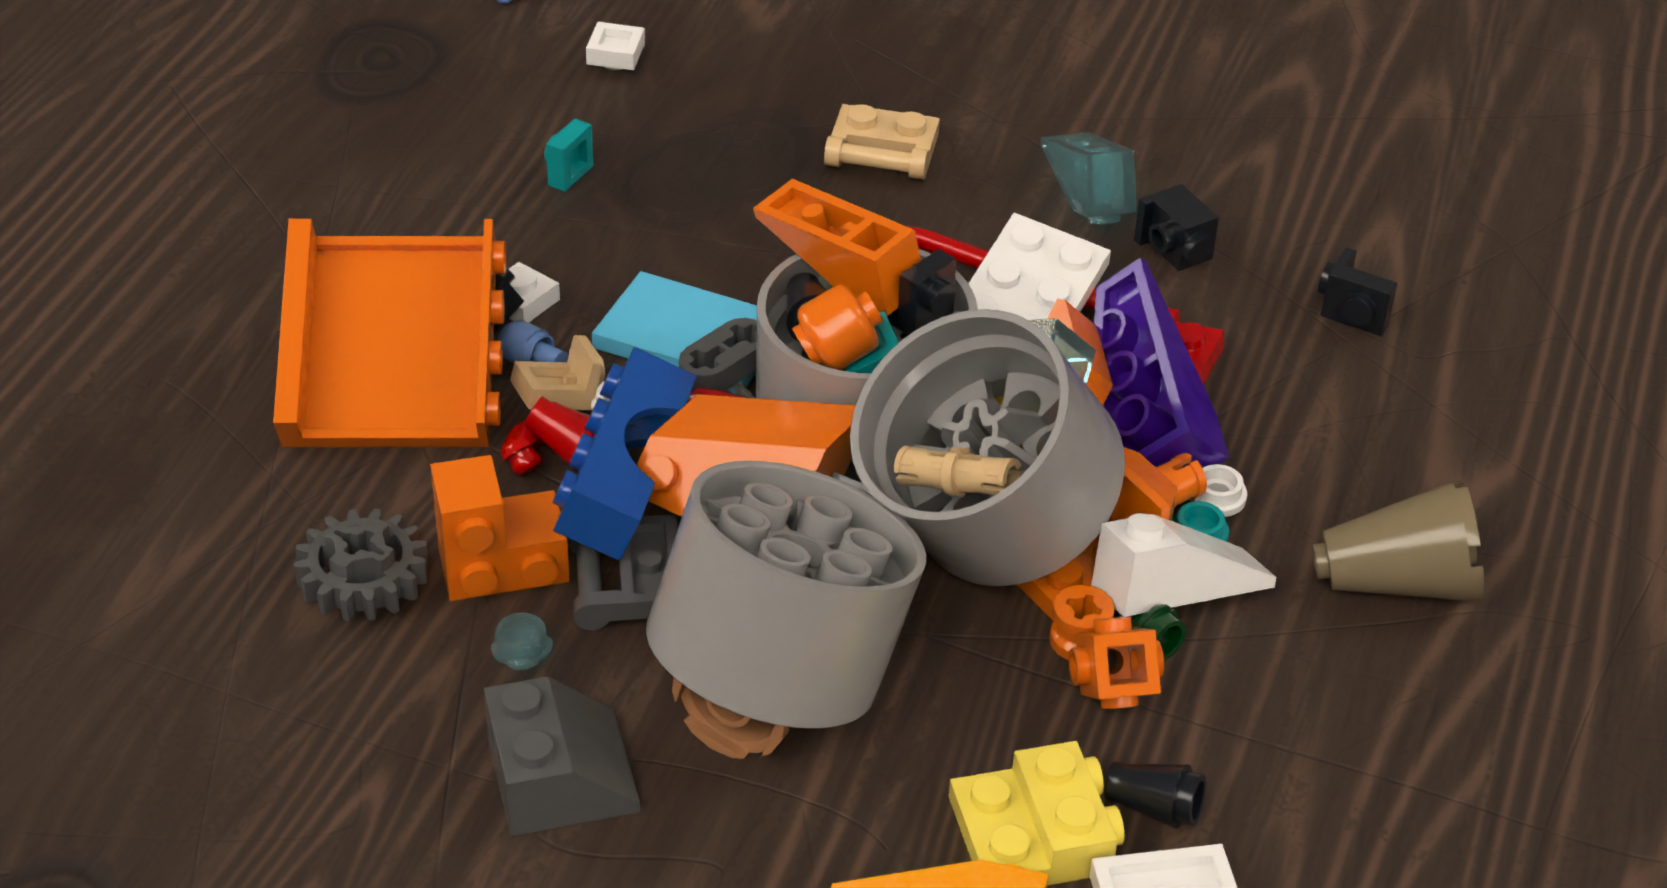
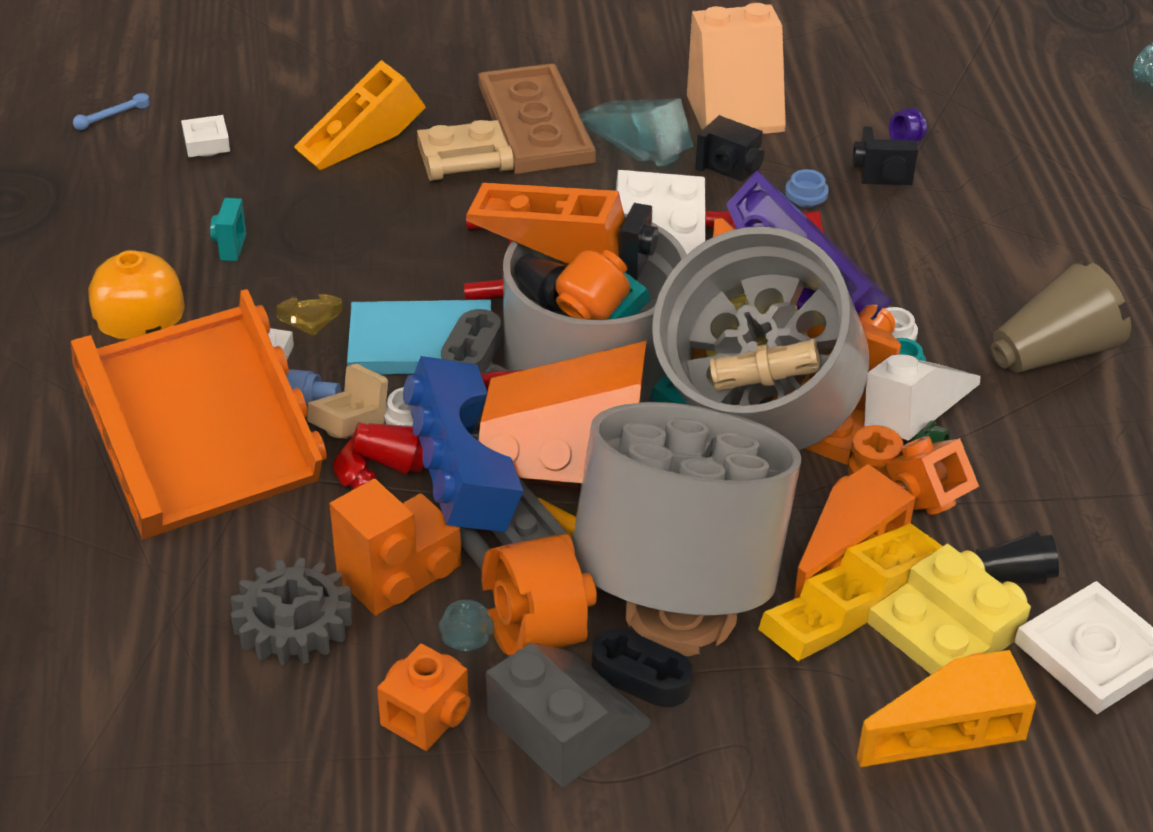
camera: 25 degrees left, 0 degrees up
(423, 692) = (424, 696): none -> orange brick
(430, 194) = (135, 295): none -> light orange cylinder
(597, 271) = (310, 314): none -> clear yellow tile
(599, 633) = (538, 593): none -> orange brick
(657, 755) = (642, 667): none -> black beam
(793, 73) = (365, 117): none -> light orange slope
(922, 757) = (842, 597): none -> yellow slope
(988, 690) = (855, 512): none -> orange slope
(989, 128) = (537, 117): none -> medium nougat tile
(1239, 300) = (807, 188): none -> medium blue plate
(1240, 136) = (737, 66): none -> light nougat slope
(1419, 265) = (908, 125): none -> dark purple plate

